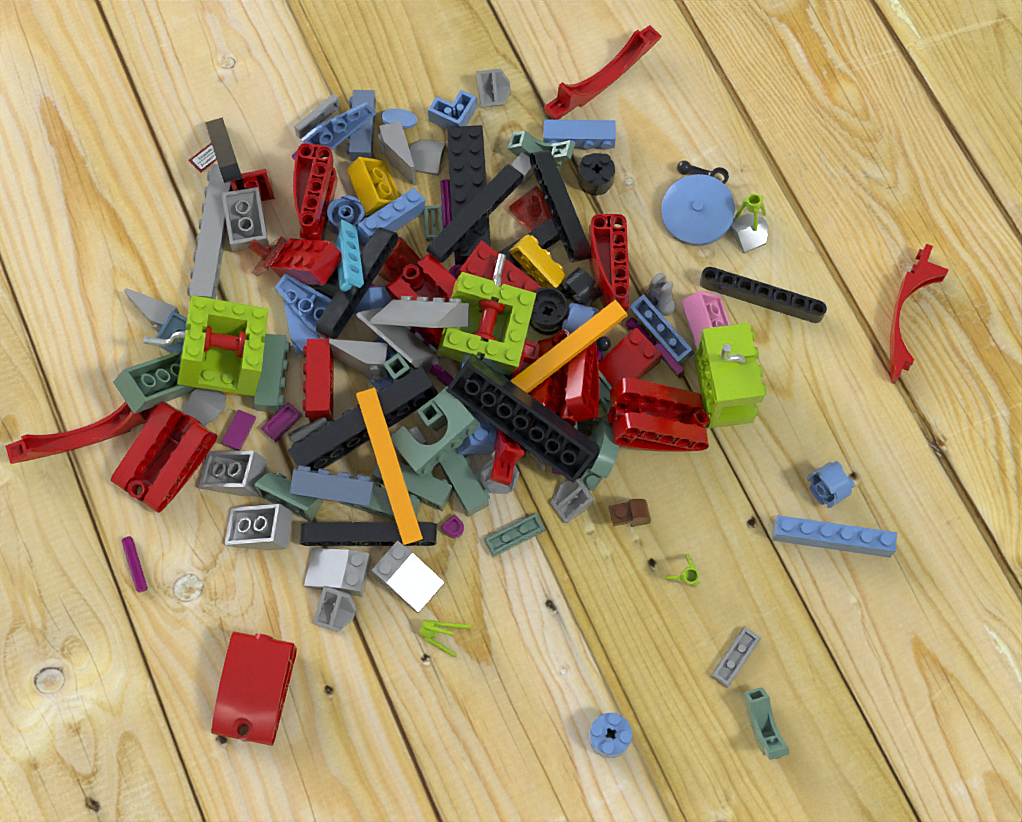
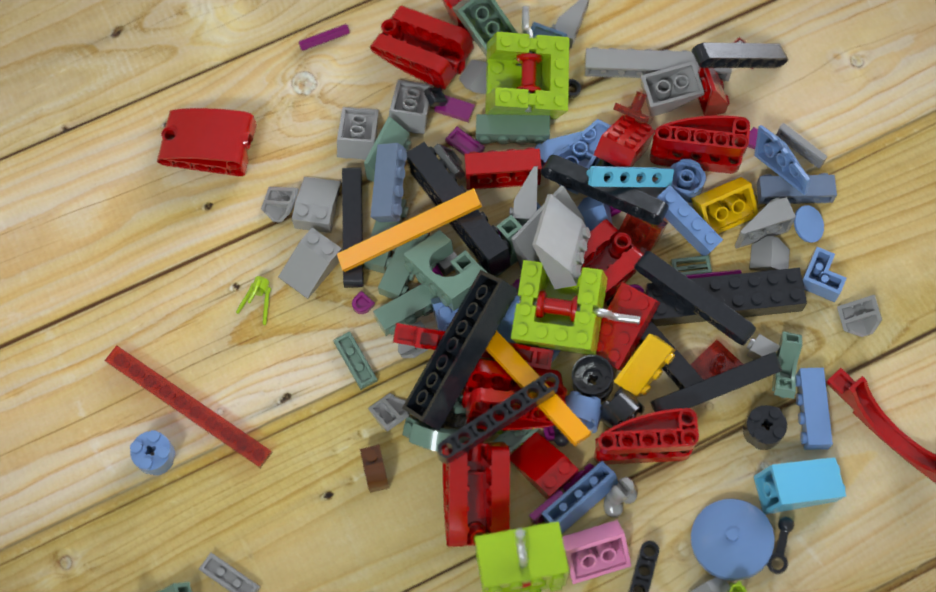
camera: 90 degrees right, 0 degrees up
(227, 444) = (435, 97): none -> black tile
(557, 704) = (188, 406): none -> clear red plate
(601, 387) = (493, 426): none -> black beam
(651, 153) = (799, 485): none -> medium azure slope
(688, 574) = (304, 523): lime plant -> none

